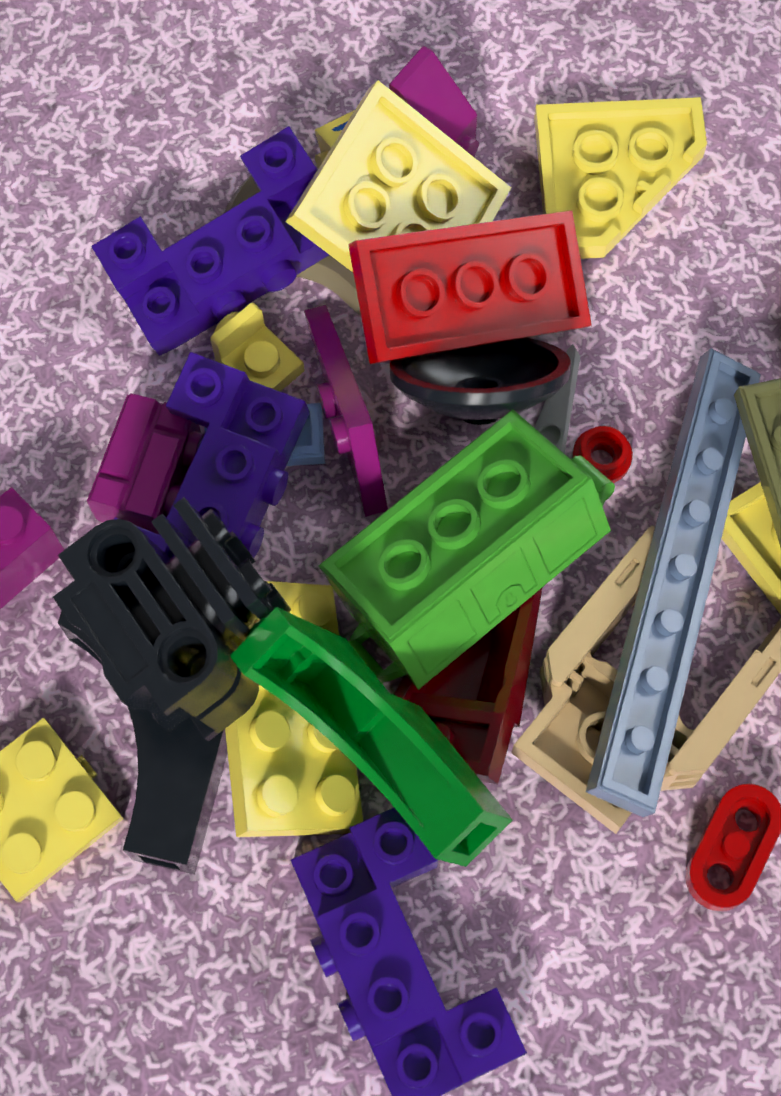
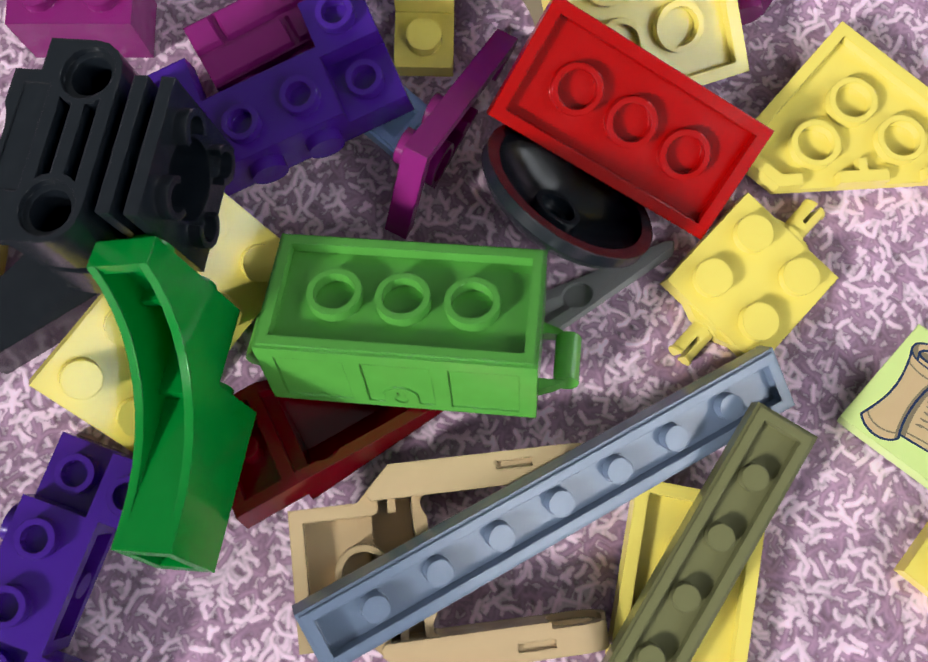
camera: 40 degrees right, 10 degrees up
(609, 440) = (624, 346): red plate -> none
(647, 325) = (748, 279): none -> light yellow plate

